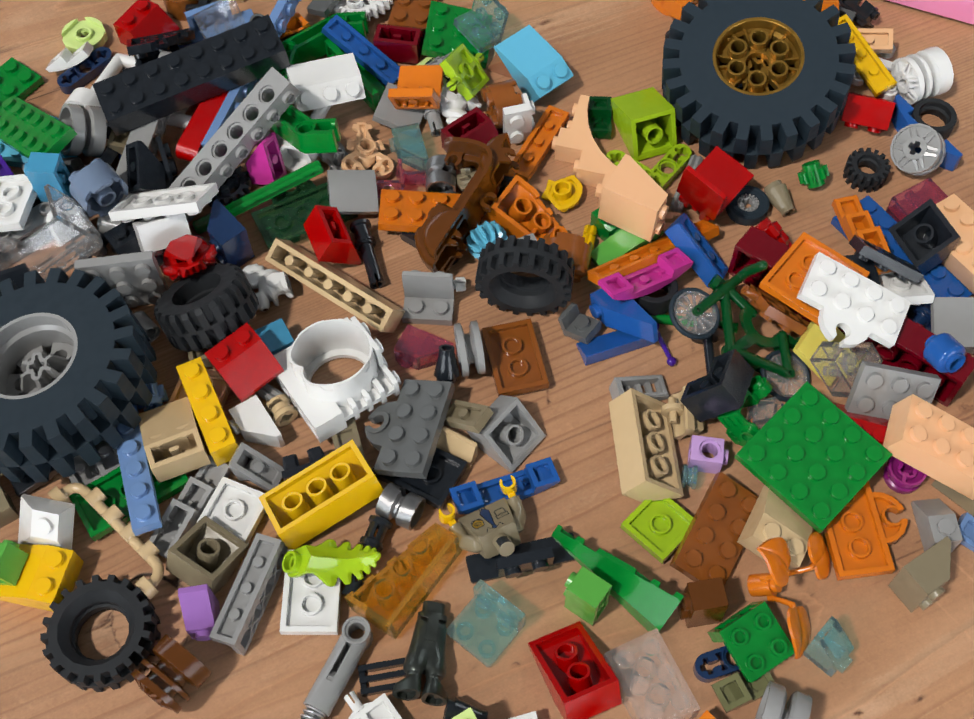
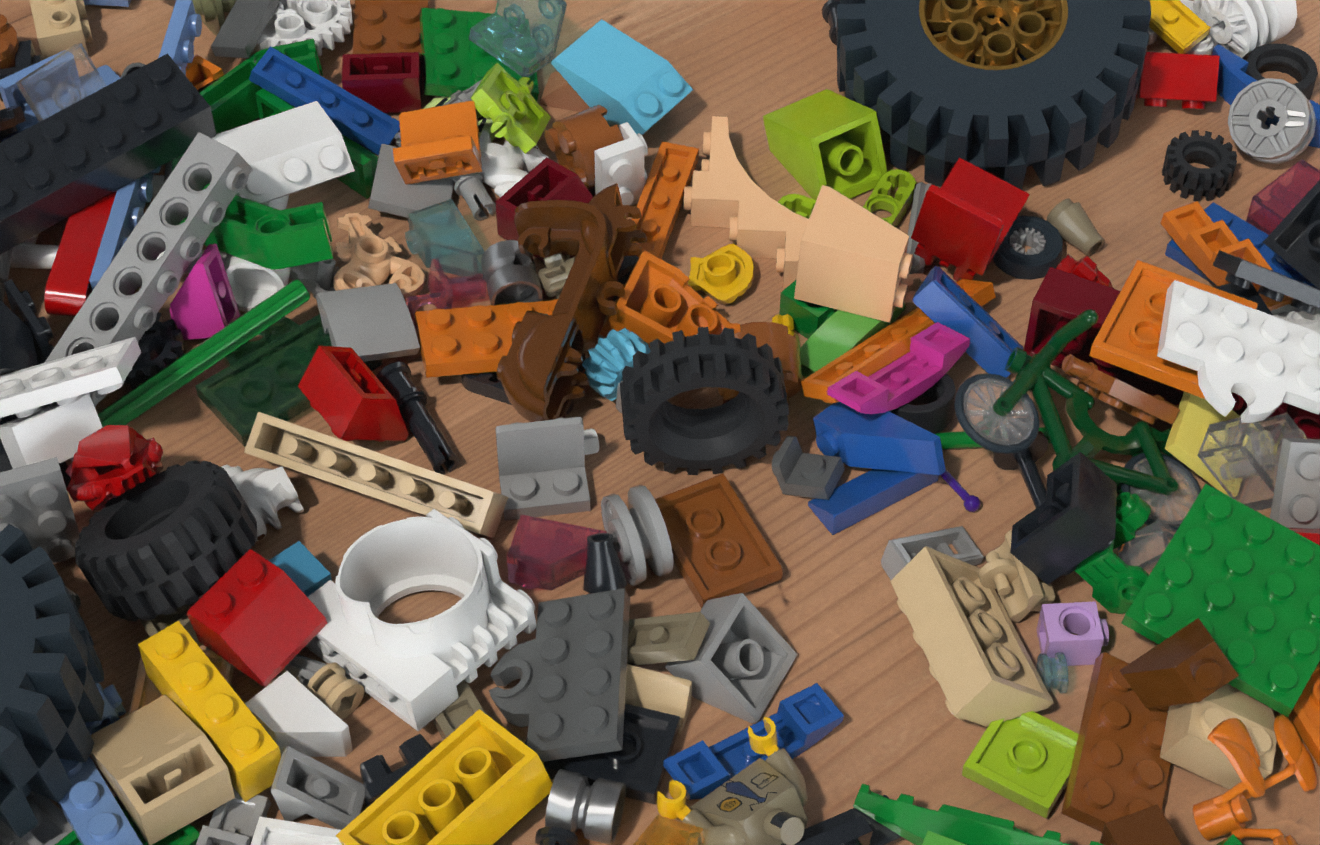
camera: 15 degrees left, 10 degrees down
(228, 237) = (173, 419): dark blue slope -> none
(600, 117) = (751, 147): dark green slope -> none
(760, 495) = (1180, 669): none -> reddish brown slope
(813, 174) = (1119, 183): green gear -> none

